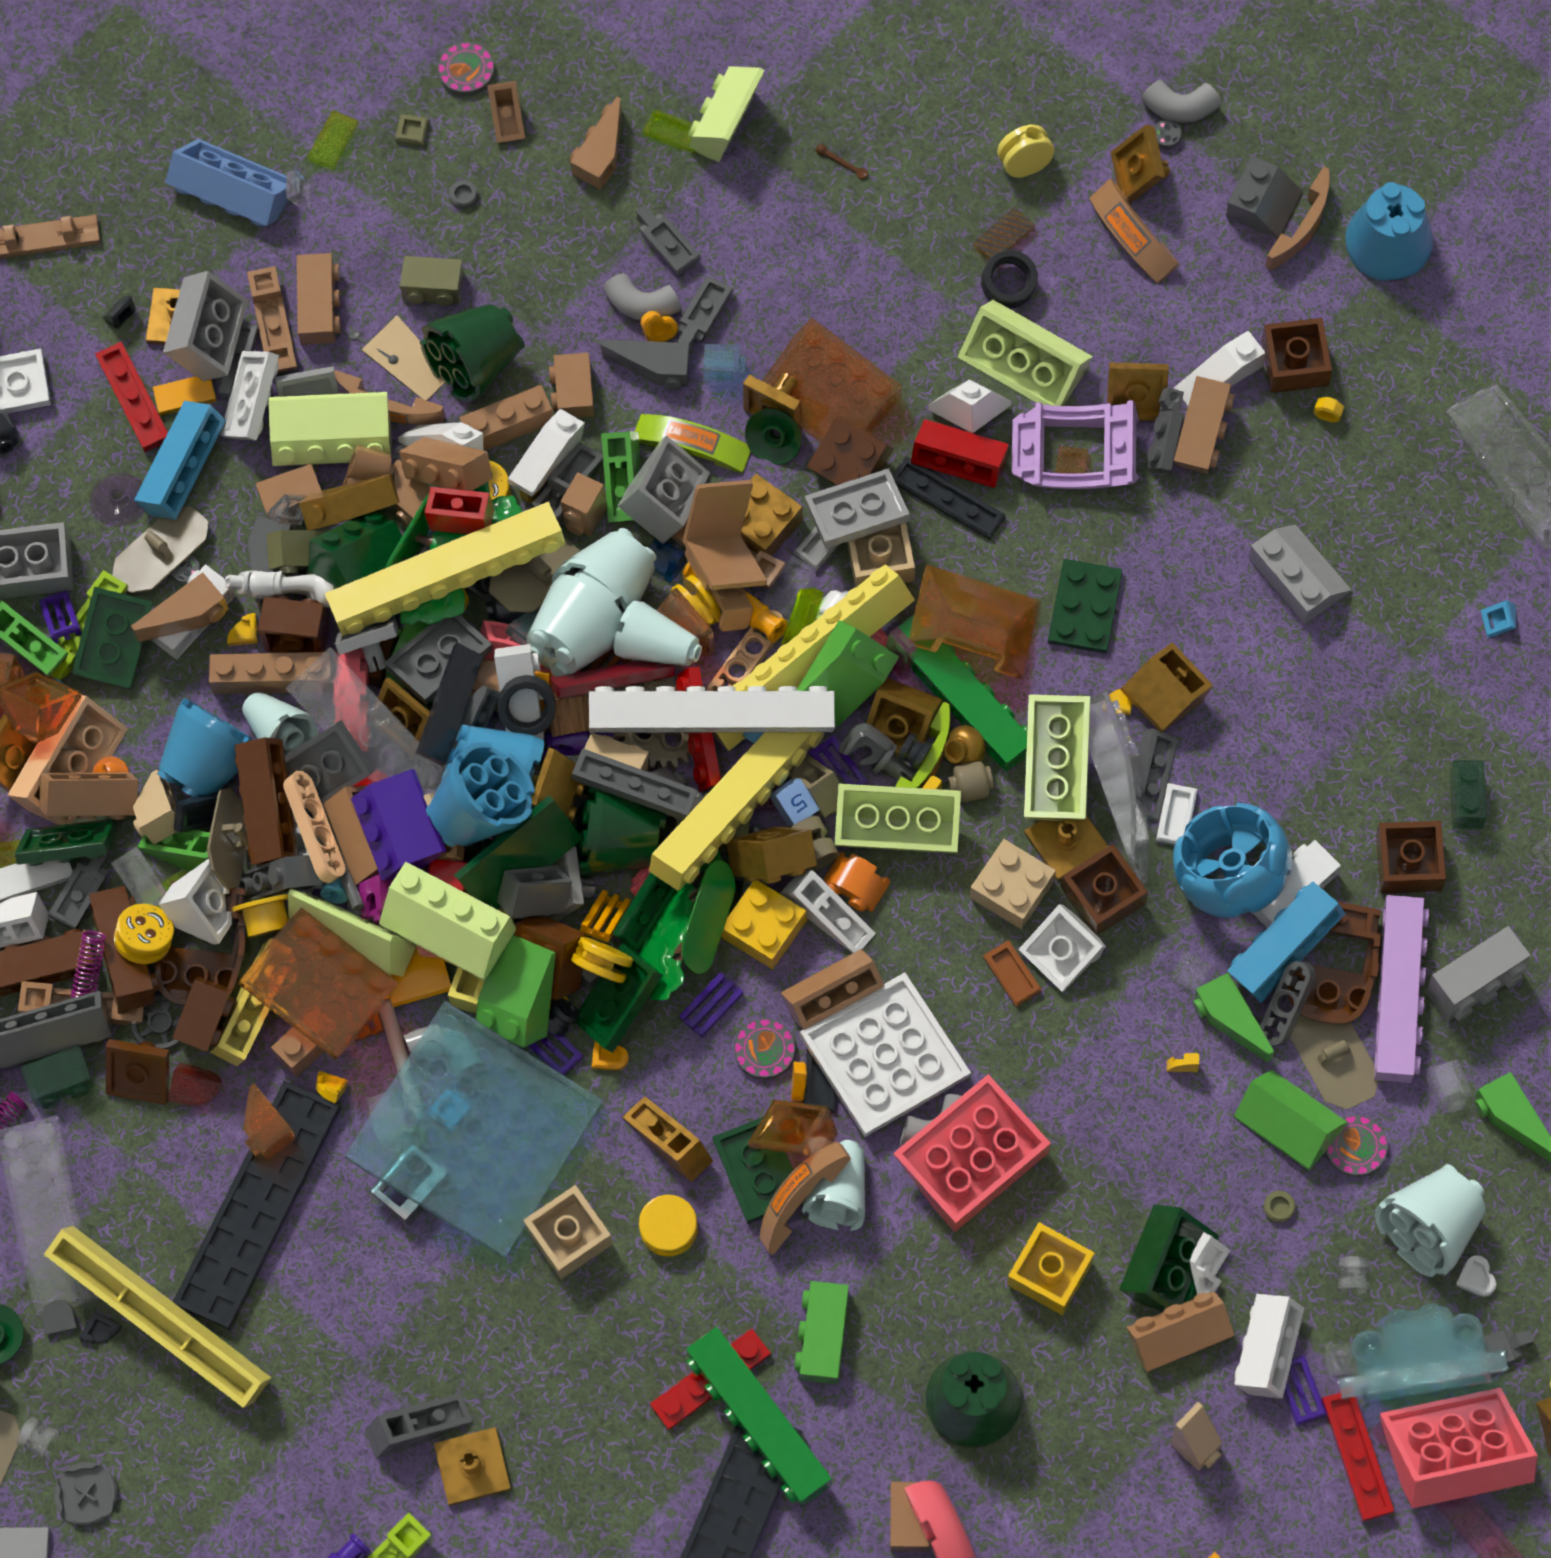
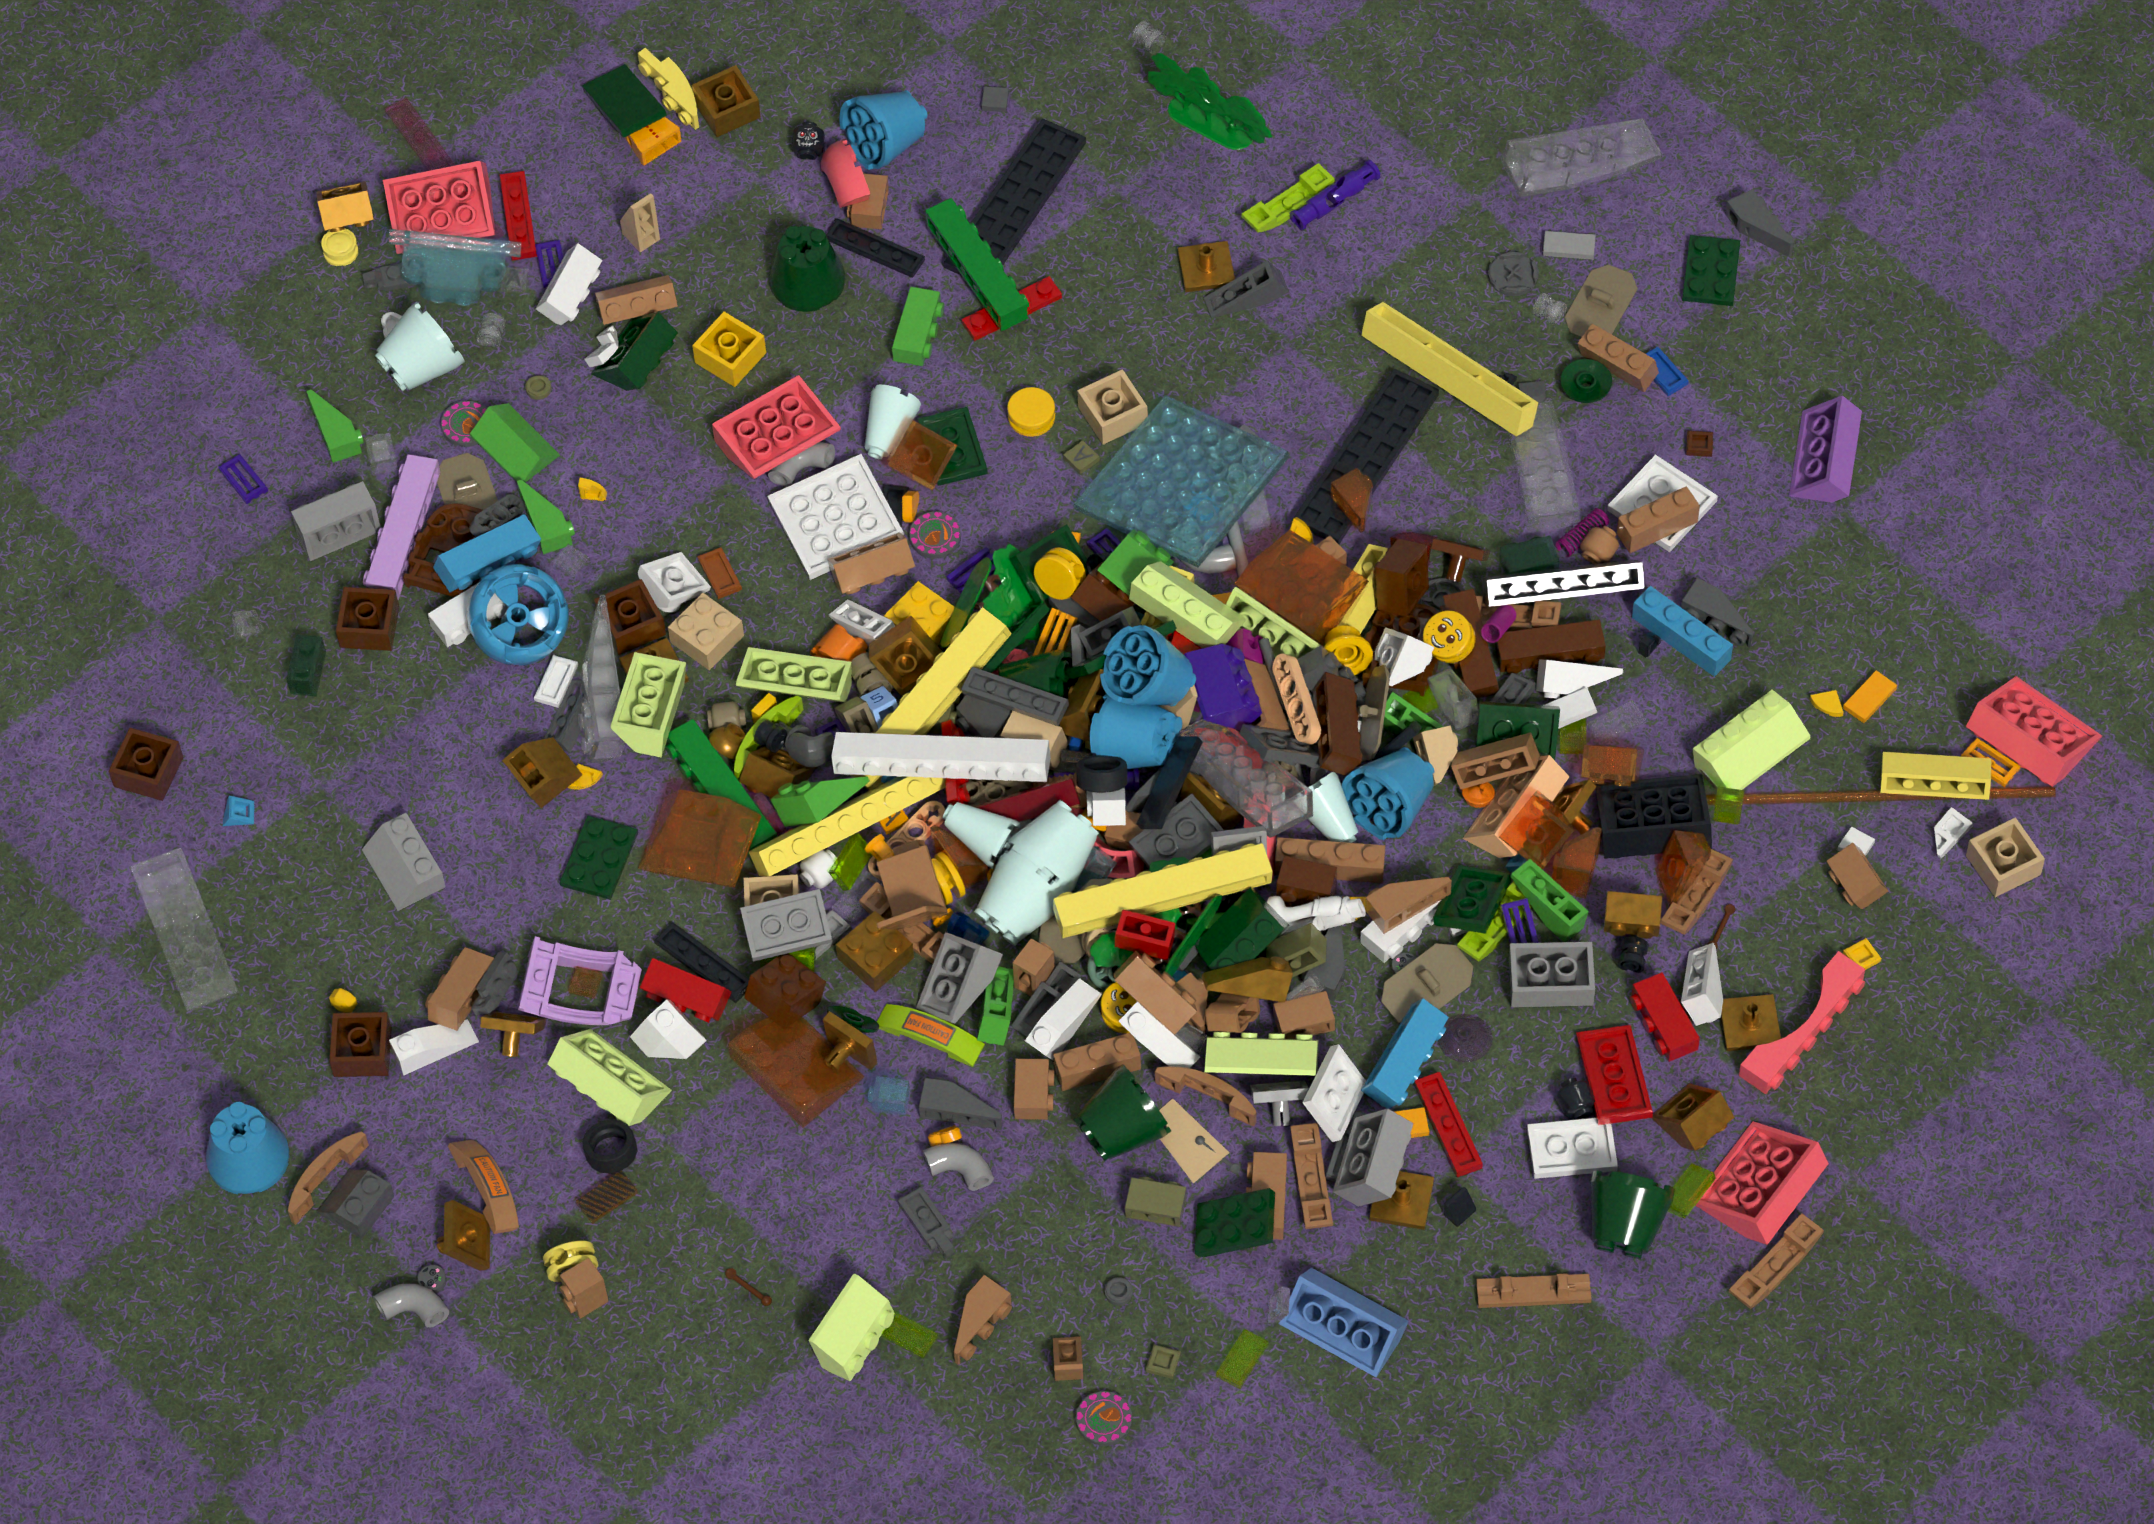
camera: 175 degrees left, 10 degrees down
(346, 257) = (1235, 1223): none -> dark green plate
(601, 1172) = (1081, 457): none -> olive tile
(669, 1139) = (1023, 471): pearl gold slope -> none
(704, 311) = (901, 1149): dark grey hinge -> none
(824, 1163) = (918, 408): medium nougat slope -> none
(893, 1453) = (875, 248): none -> black tile
(1004, 116) = (583, 1289): none -> medium nougat brick

